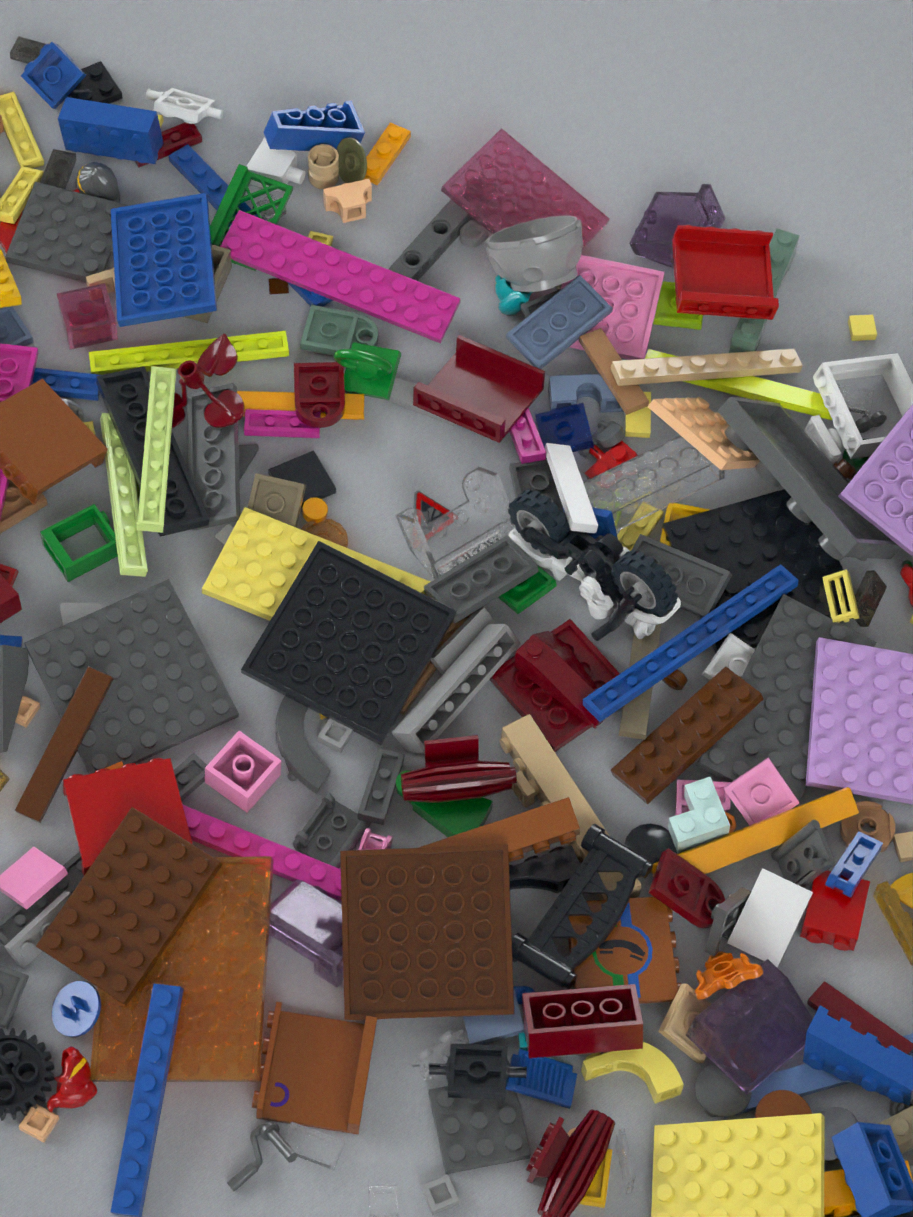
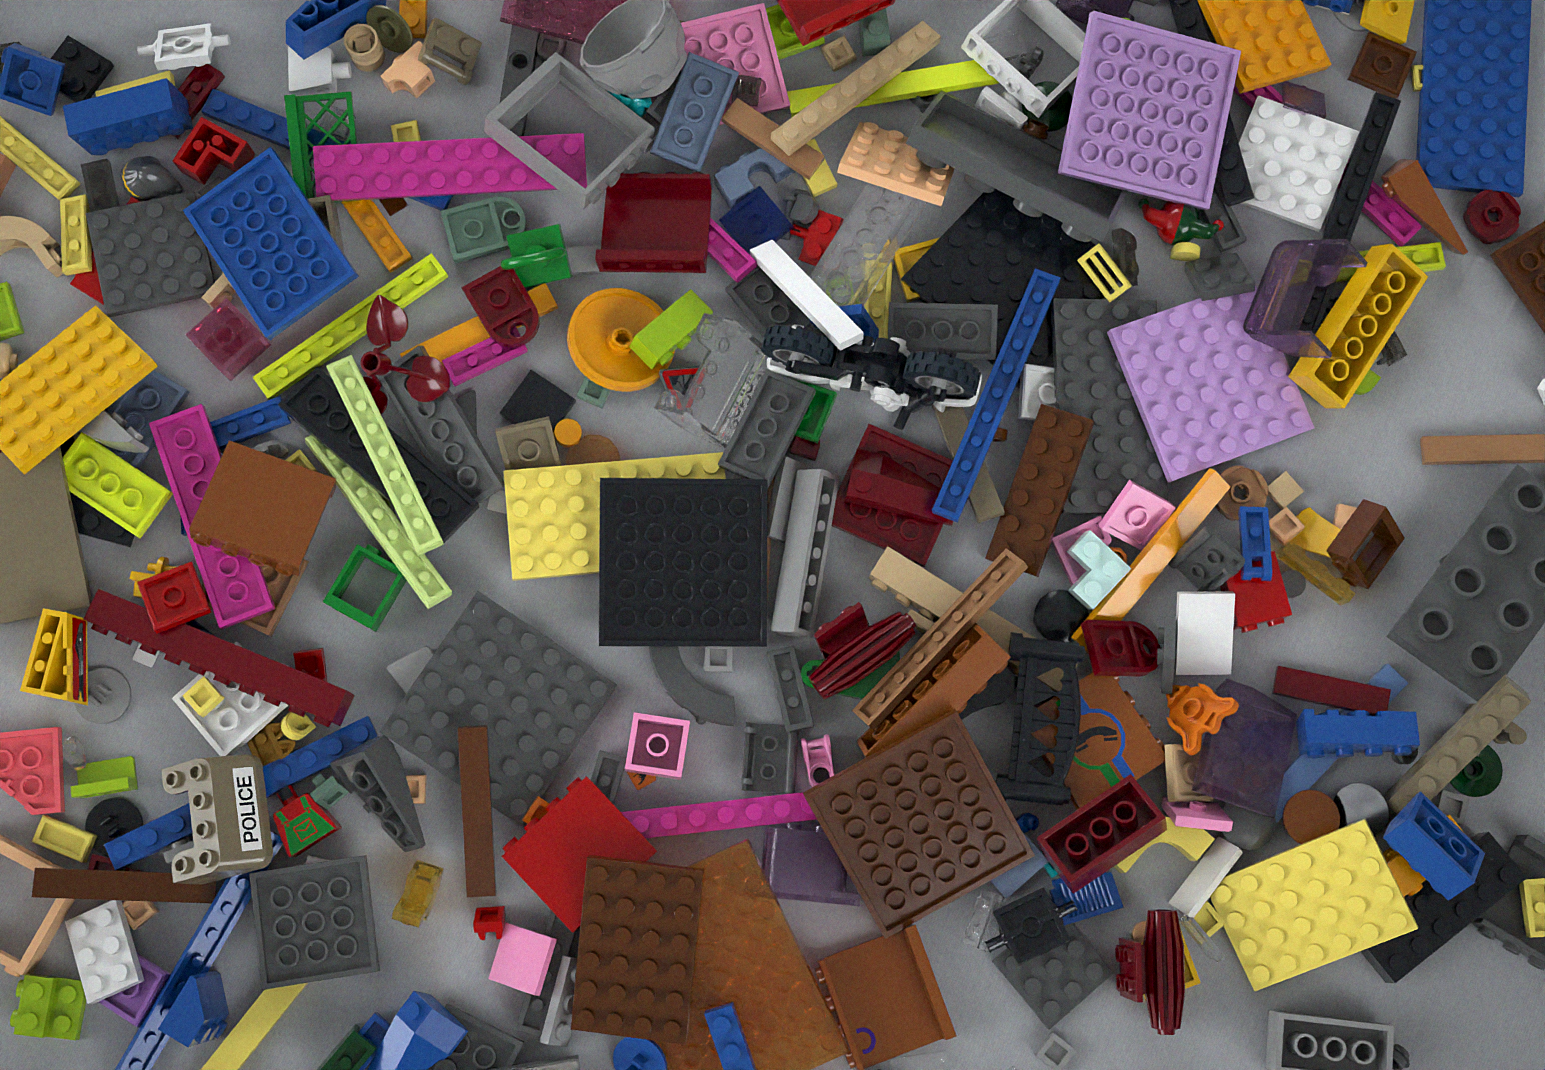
camera: 30 degrees left, 20 degrees up
(22, 836) = (489, 920): none -> red tile
(156, 180) = (207, 148): none -> red brick
(214, 797) = (641, 780): none -> orange sticker
(252, 300) = (378, 233): none -> light orange tile
(355, 487) = (593, 393): none -> sand green tile
(395, 195) = (452, 44): none -> dark tan plate
(398, 458) = (602, 335): none -> light orange dish
(441, 468) = (670, 330): none -> lime brick
(442, 249) = (532, 91): none -> light grey window
(506, 615) = (805, 448): none -> dark red tile
(574, 787) = (940, 638): none -> medium nougat plate
(614, 328) = (747, 90): none -> clear smoke tile
(642, 1156) = (1209, 919): none -> light yellow tile
(660, 1117) = (1205, 877): none -> white tile
(678, 1053) = (1197, 815): none -> bright pink plate
(709, 342) = (838, 53): none -> tan tile
(874, 923) = (1294, 583): none -> dark grey tile
(894, 872) = (1285, 526): none -> light nougat tile

